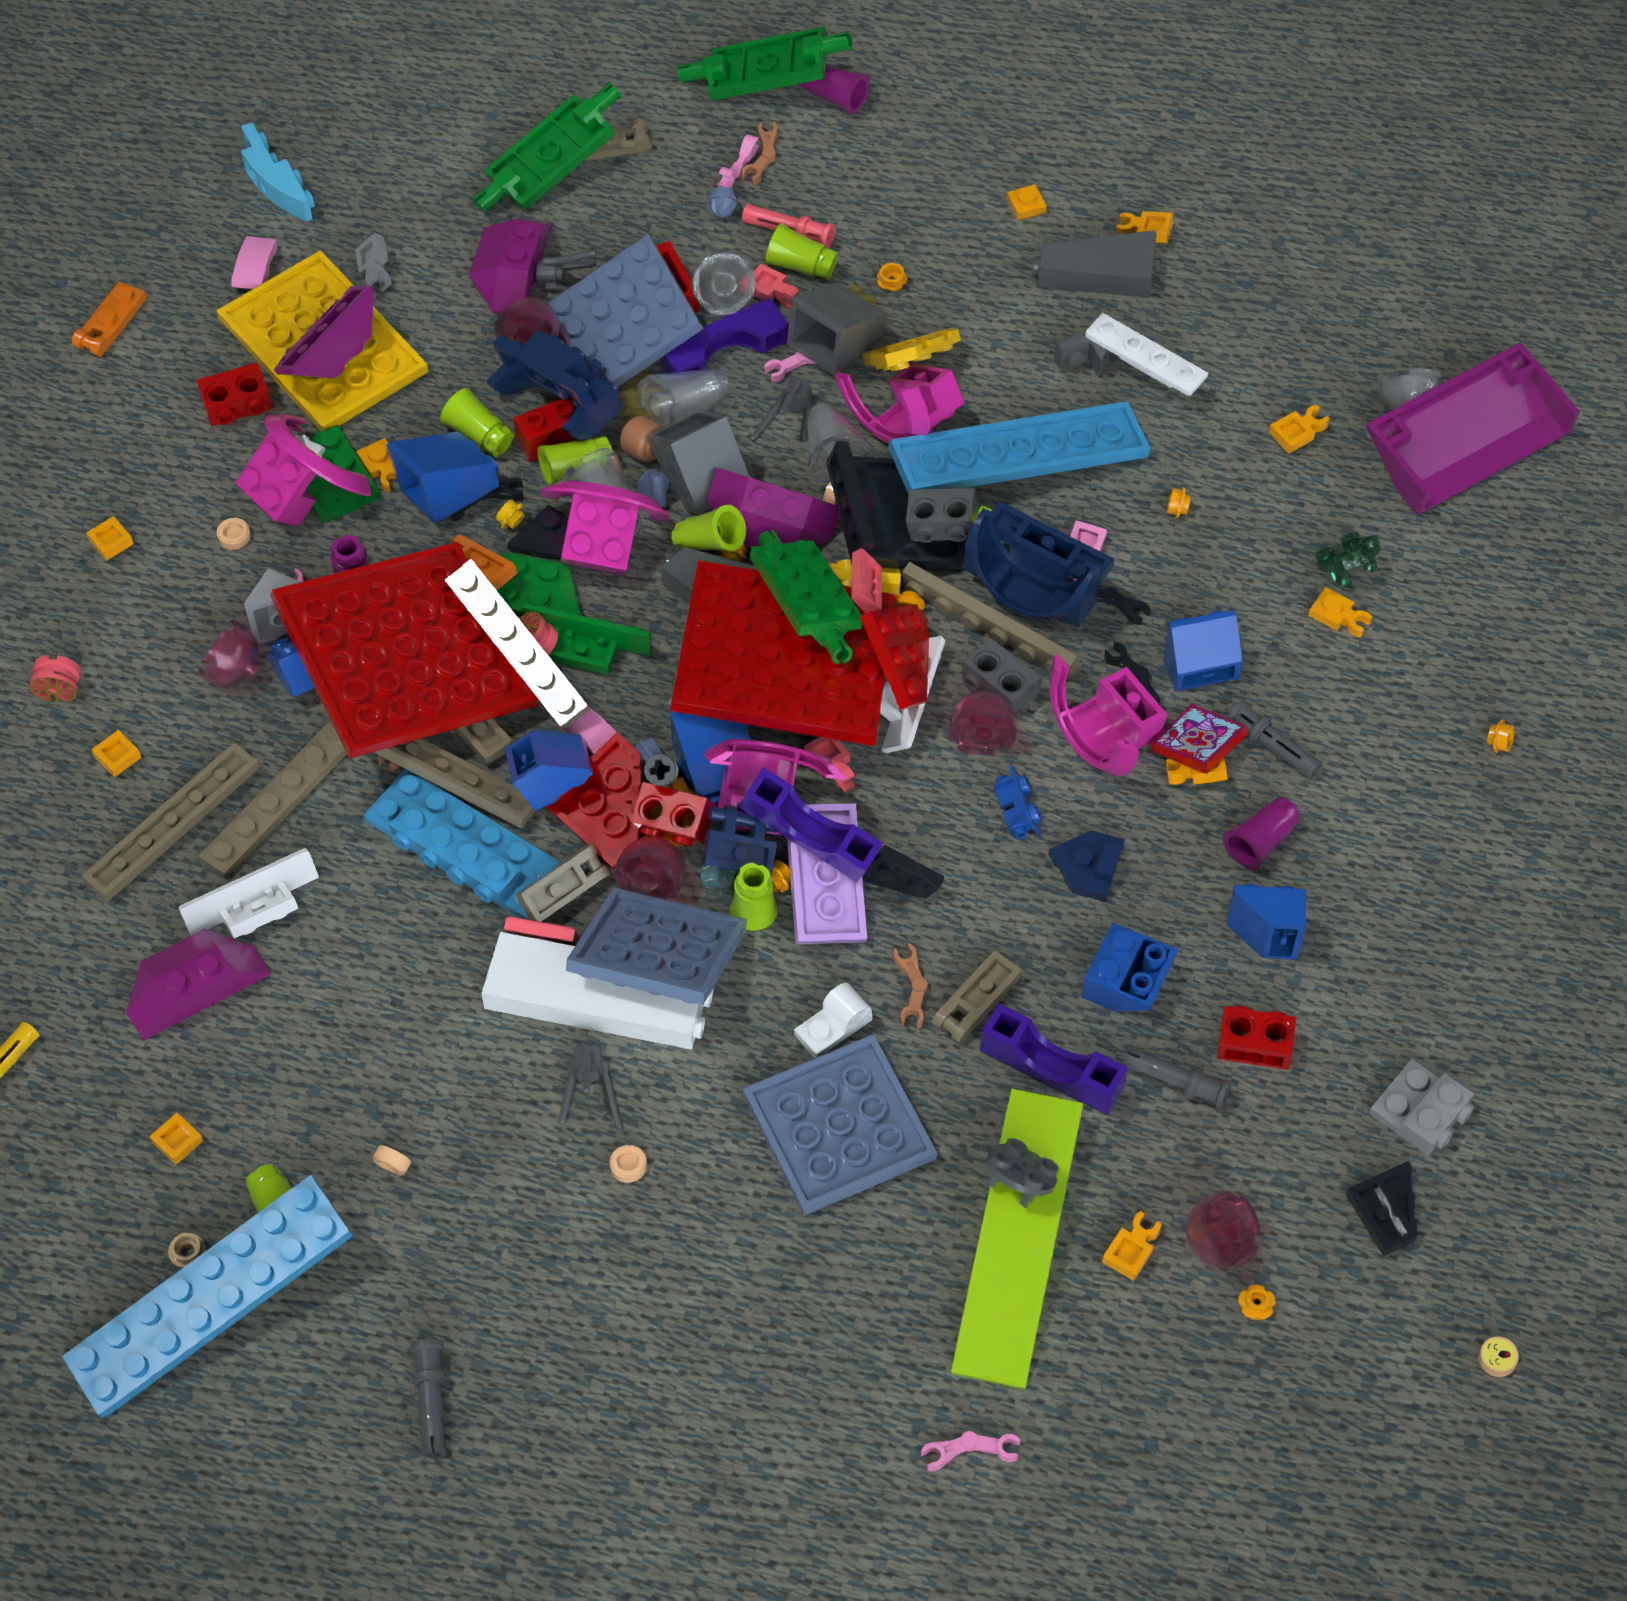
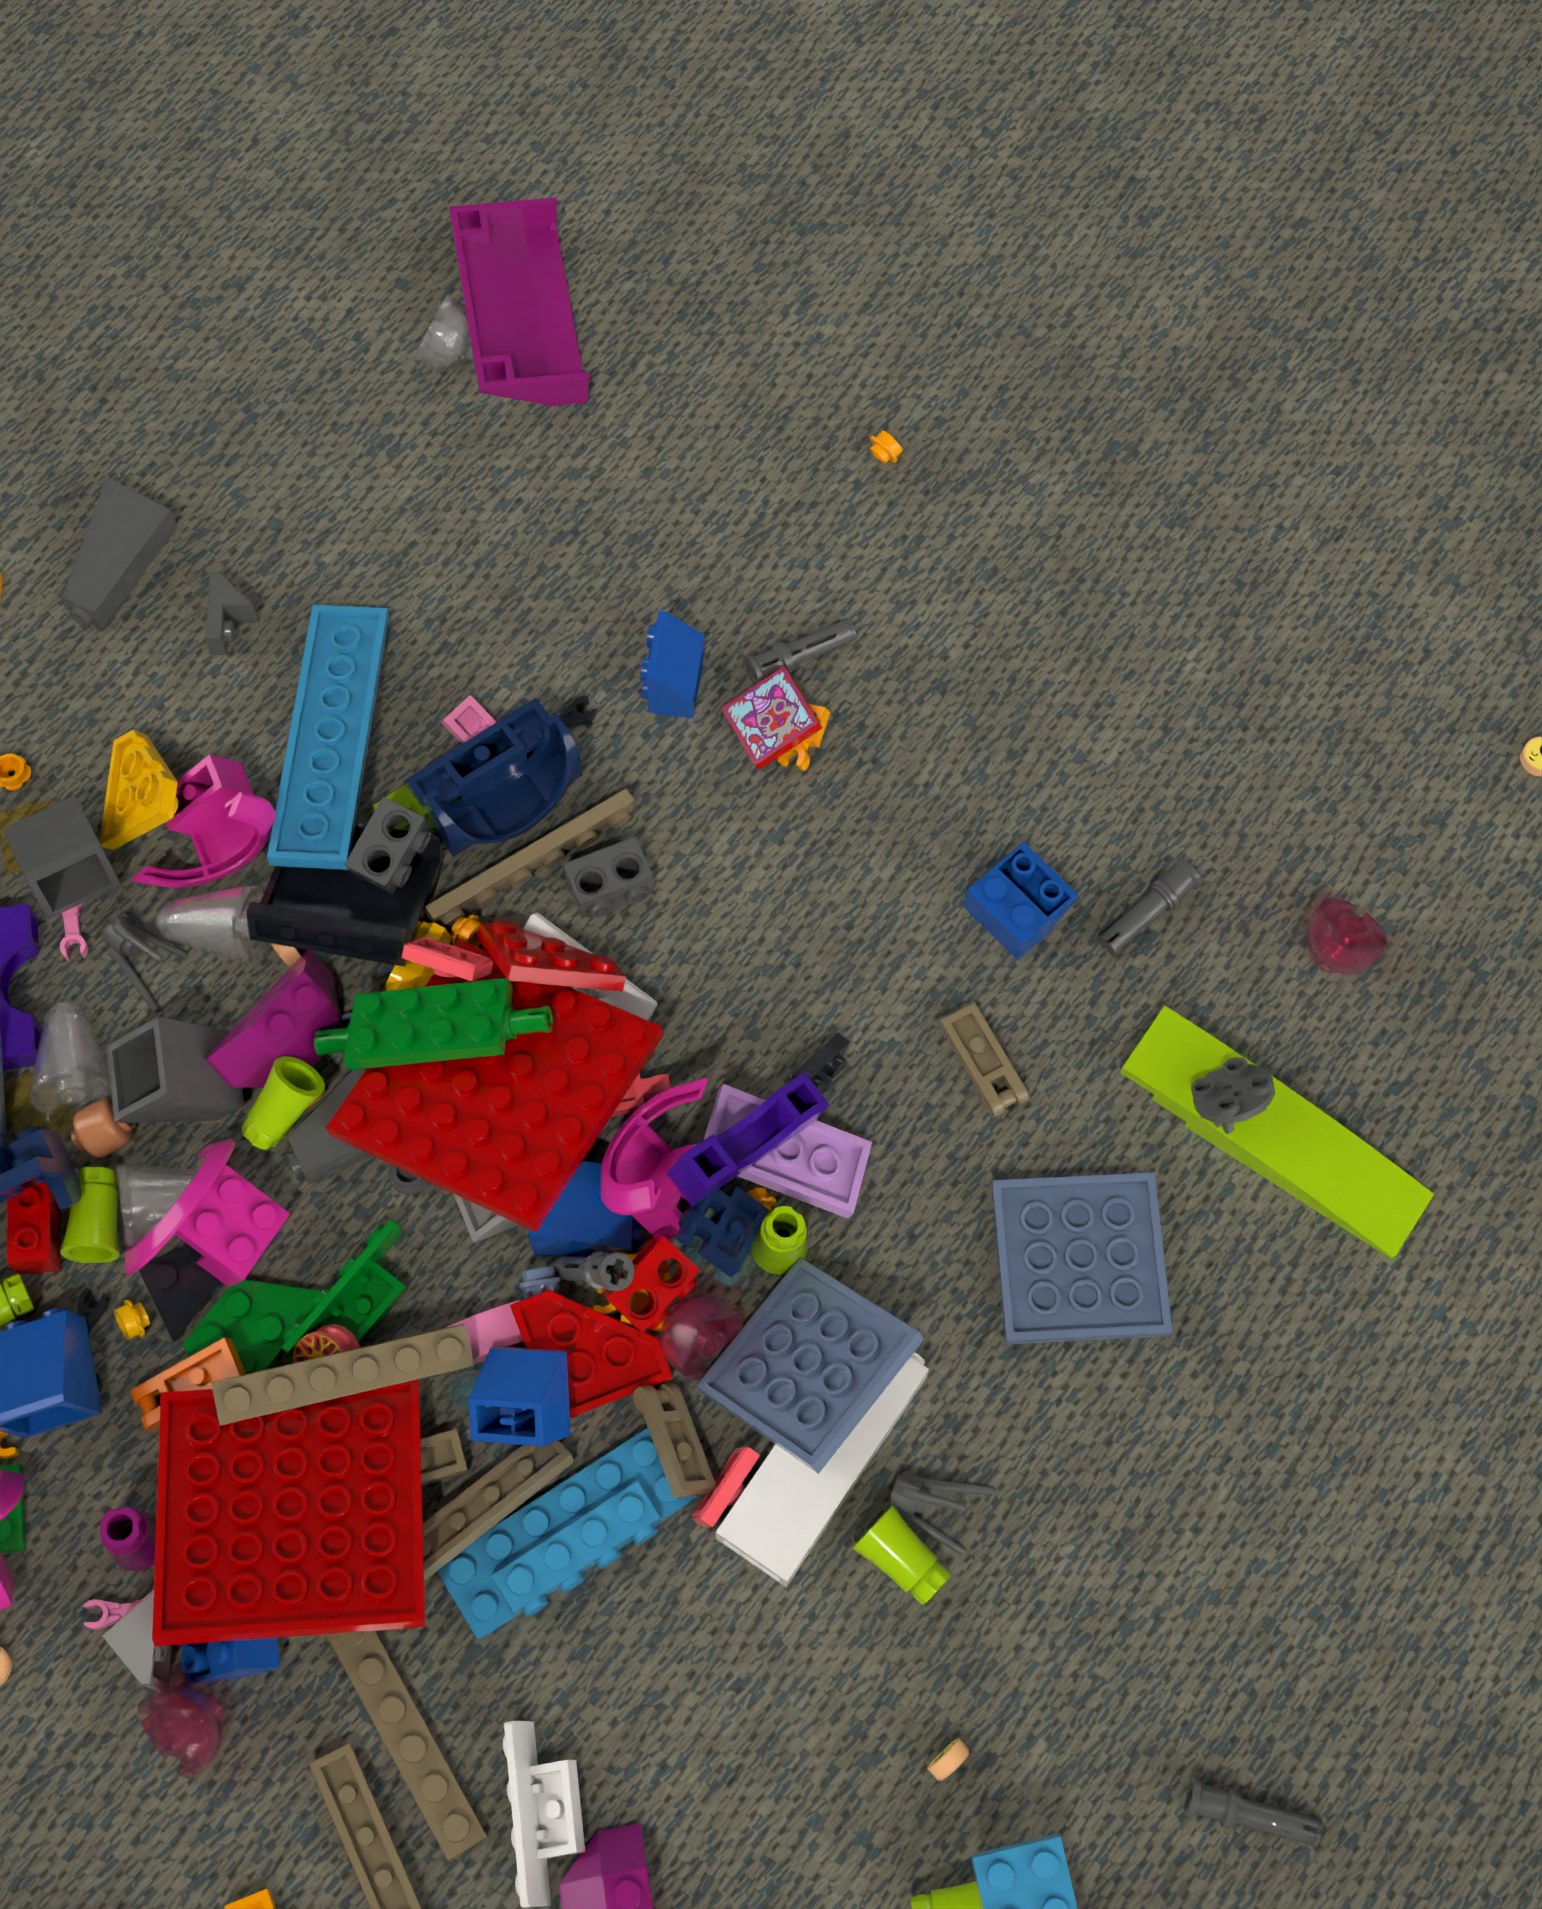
camera: 70 degrees left, 10 degrees up
(537, 1071) = (902, 1556): none -> lime plant
(628, 1163) = (1042, 1497): light nougat tile -> none
(654, 485) = (173, 1141): sand blue plate -> none
(841, 1016) = (956, 1216): white plate -> none
(919, 985) = (945, 1114): nougat piece -> none
(968, 1442) = (1474, 1273): bright pink piece -> none
(982, 723) = (660, 915): clear pink cylinder -> none
(1015, 791) = (754, 922): blue hinge -> none
(1019, 1044) = (1118, 998): dark purple arch -> none
(1089, 863) = (869, 885): dark blue plate -> none
(1112, 723) = (717, 794): dark pink piece -> none
(1130, 1250) = (1324, 1033): light orange plate -> none
(1138, 671) = (659, 742): black piece -> none
(1146, 355) = (270, 558): white bracket -> none
(1149, 221) = (86, 485): light orange plate -> none
(1178, 502) = (465, 612): light orange plate -> none
(1254, 1311) = (1411, 948): light orange plate -> none
(1255, 1046) = (1139, 817): red brick -> none
(1261, 833) = (908, 709): magenta plant -> none
(1269, 919) = (1021, 742): blue slope -> none
(1297, 431) = (429, 461): light orange plate -> none
(1337, 610) = (669, 528): light orange plate -> none
(1347, 555) = (615, 482): clear green plate -> none
(1387, 1208) = (1360, 781): black wing -> none
(1423, 1107) = (1264, 701): light grey plate -> none

